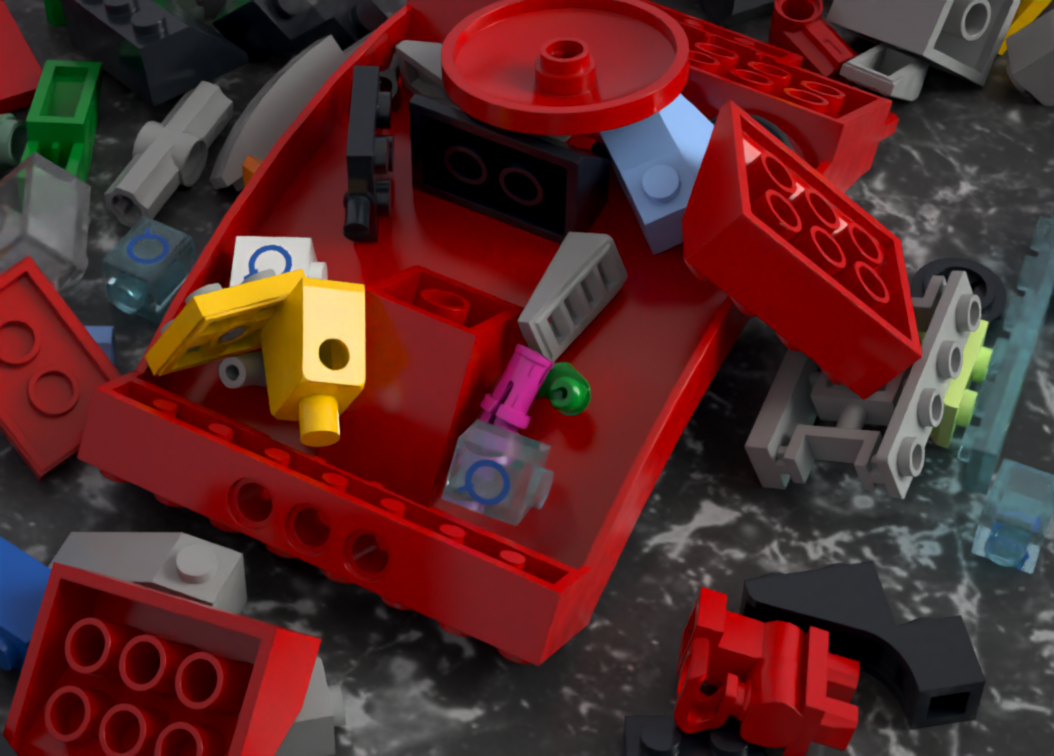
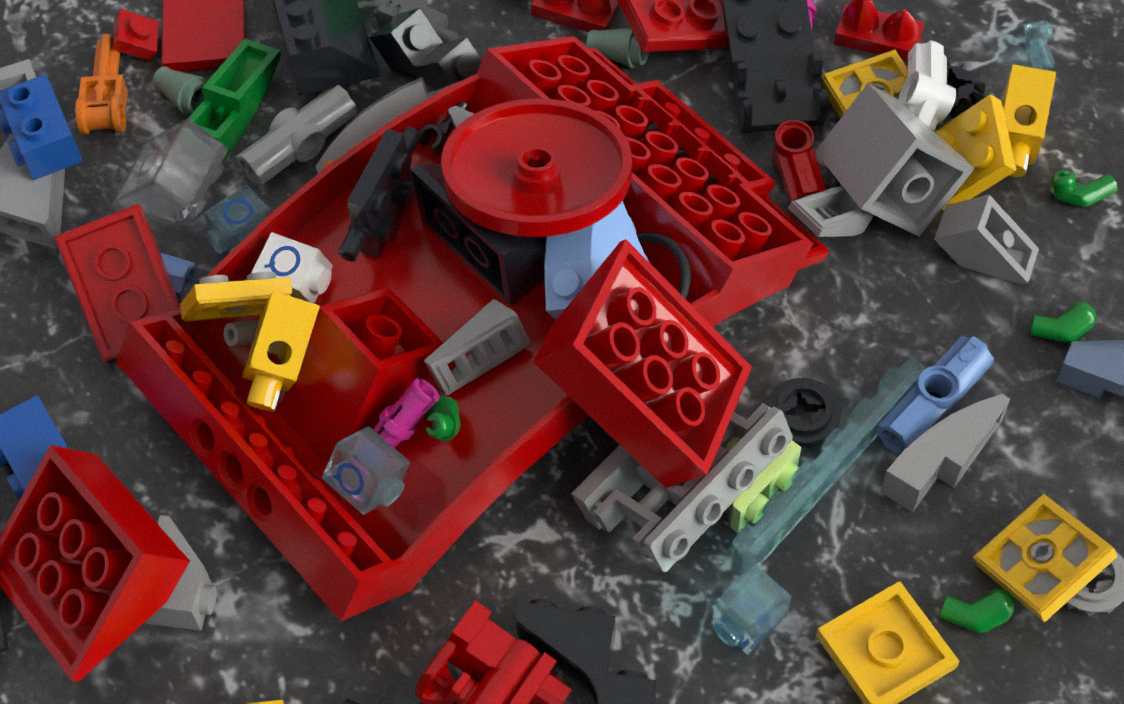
camera: 25 degrees right, 10 degrees up
(162, 562) = (139, 465): light grey slope -> none

